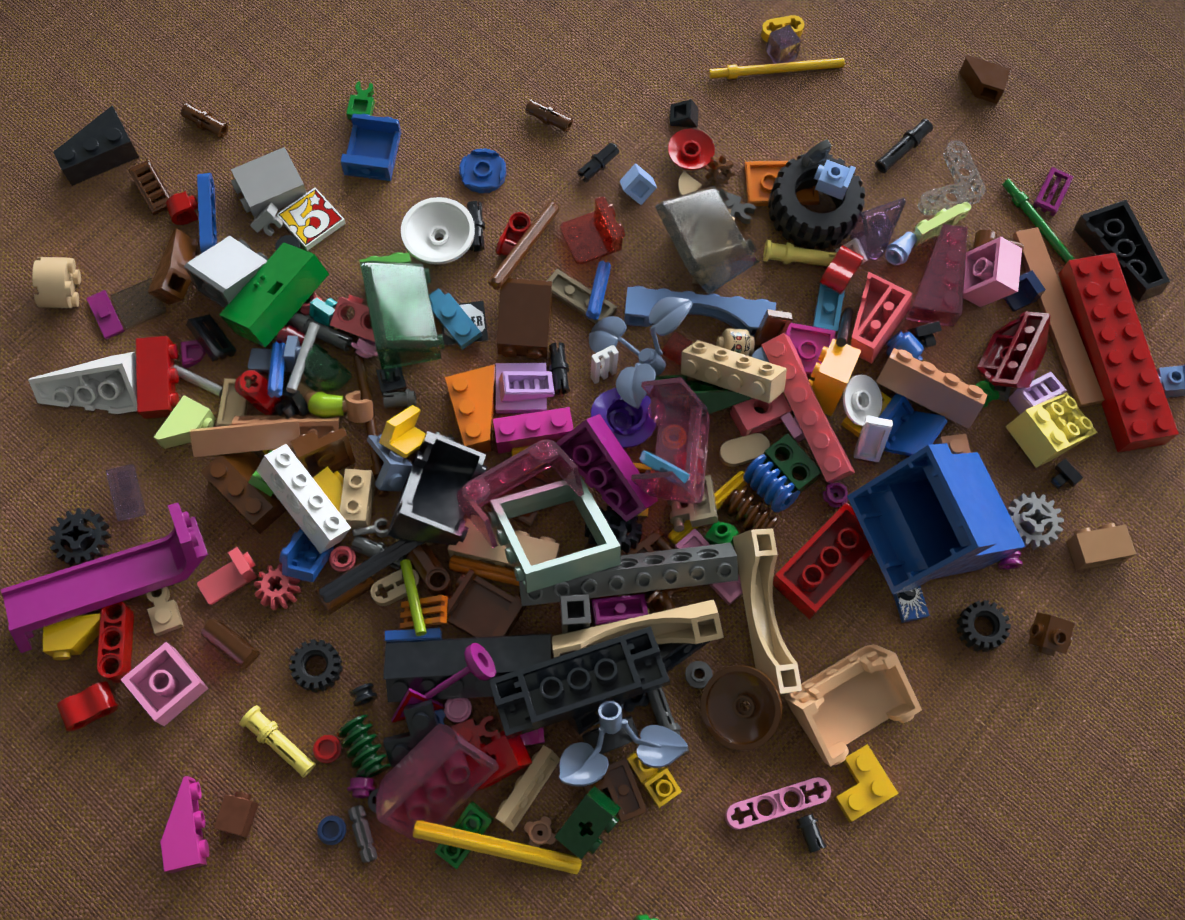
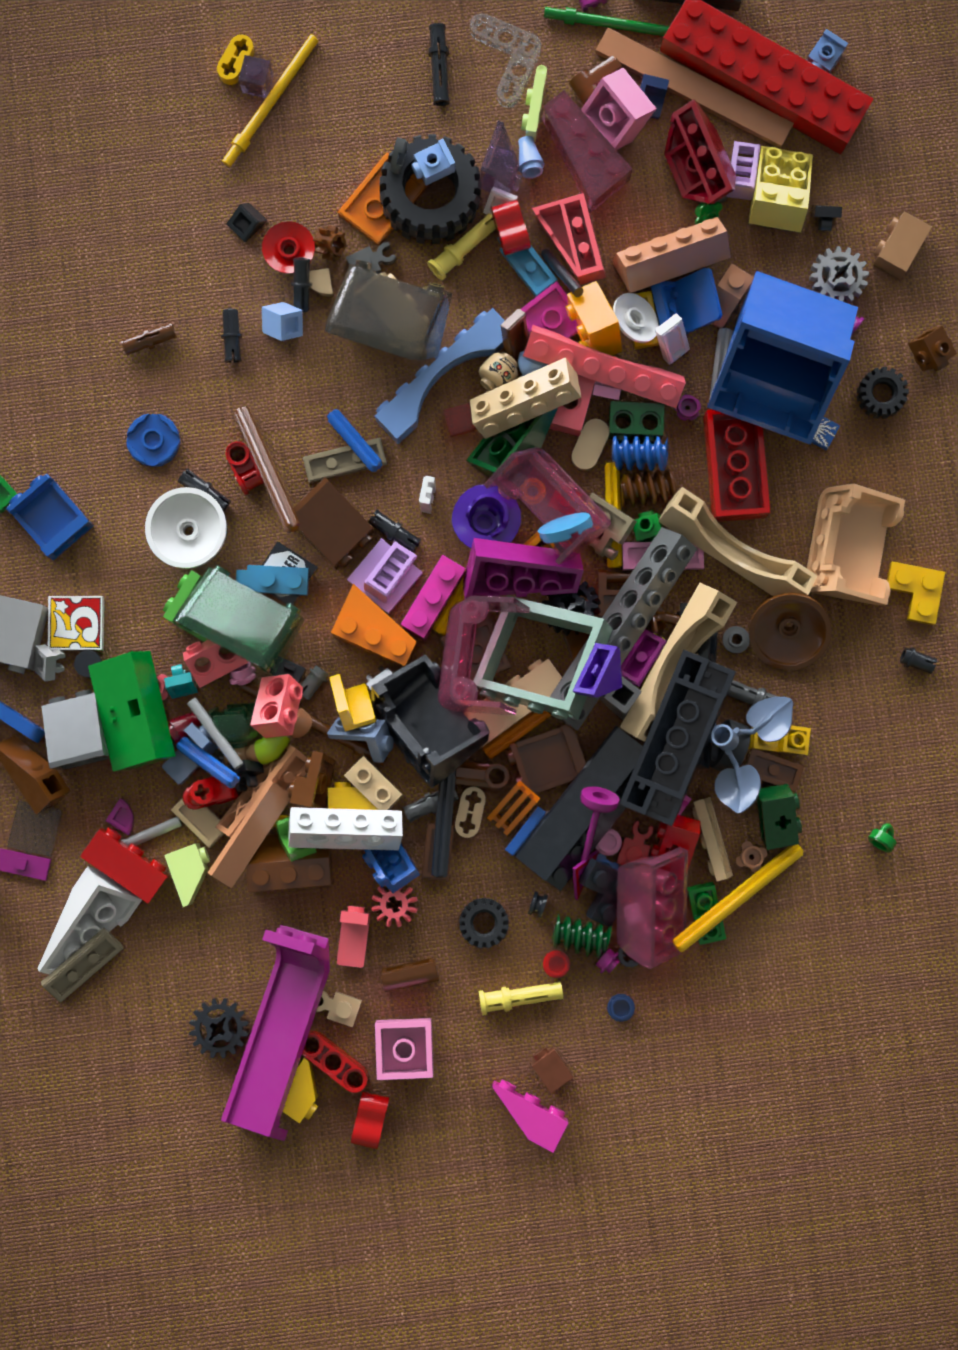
camera: 45 degrees left, 15 degrees up
(57, 407) = (82, 965): none -> dark tan tile
(125, 492) = (211, 964): plate -> none
(208, 338) = (121, 796): black tile -> none
(324, 333) = (178, 705): dark grey pin -> none
(339, 552) = (421, 835): coral plate -> none
(358, 382) = (277, 706): none -> coral brick
(362, 833) = (642, 986): dark grey axle -> none
(372, 529) = (407, 794): light grey hand -> none
(413, 598) = (495, 806): lime bar -> none
(576, 574) = (601, 672): none -> dark purple slope
(594, 233) = (297, 399): clear red bracket -> none
(665, 317) = (441, 412): sand blue plant -> none
(674, 174) = (301, 283): none -> black axle
(779, 807) = (877, 665): bright pink beam -> none
(907, 342) = (617, 238): blue head -> none
(925, 334) = (618, 210): black tile -> none

